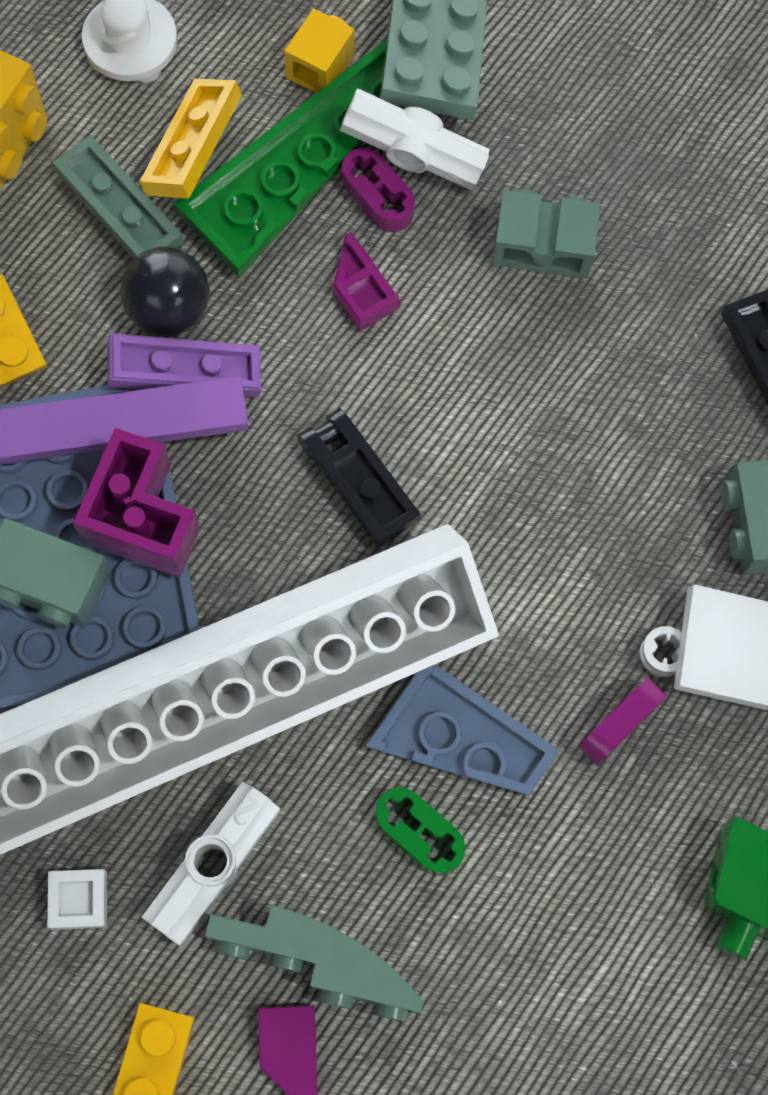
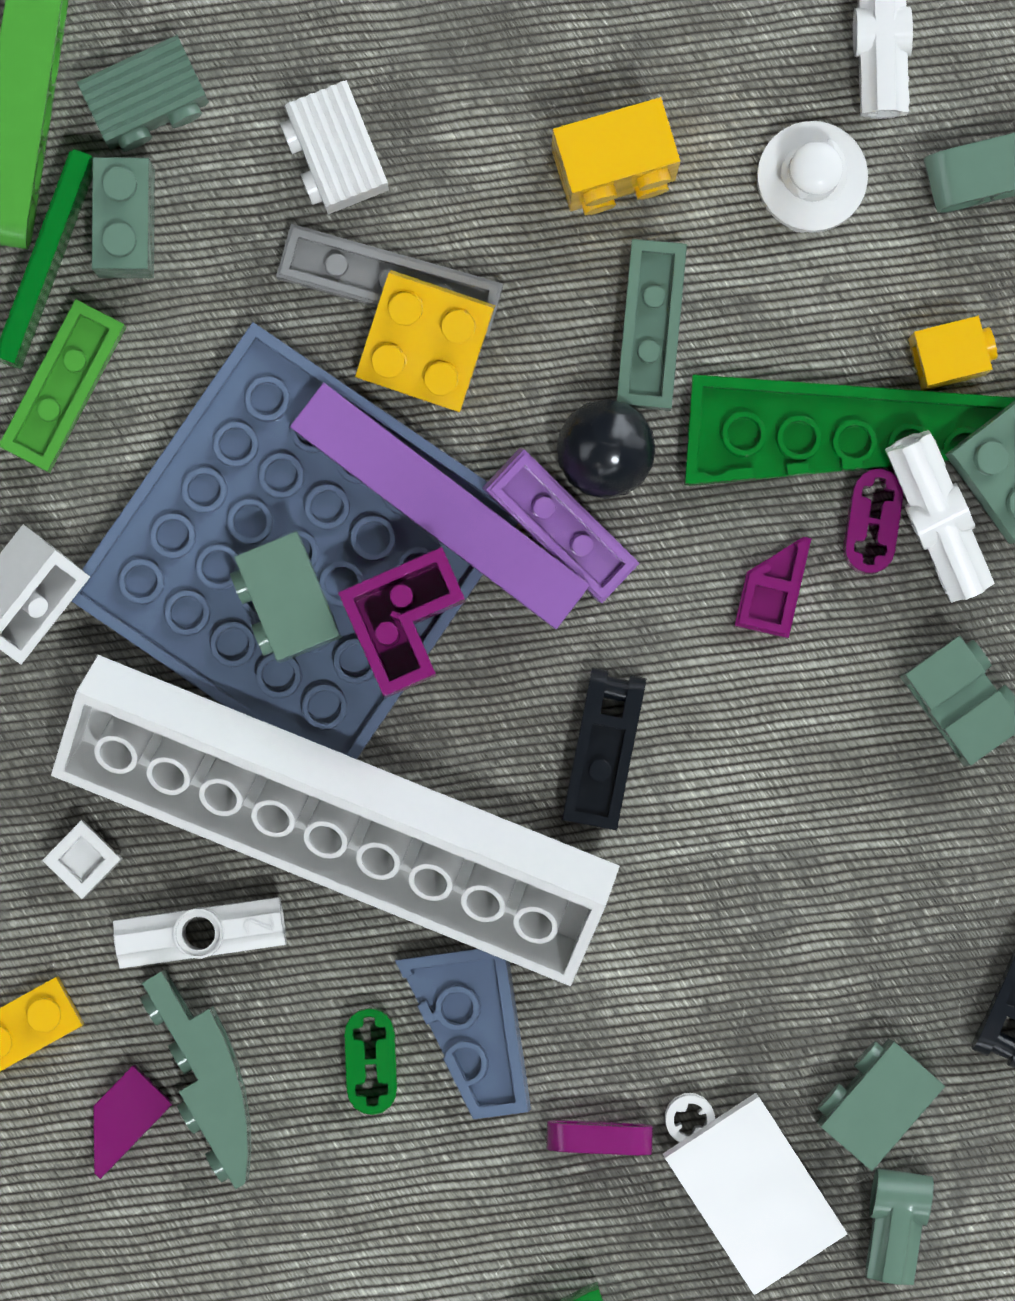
camera: 50 degrees right, 15 degrees up
(191, 138) = (764, 330): yellow plate -> none

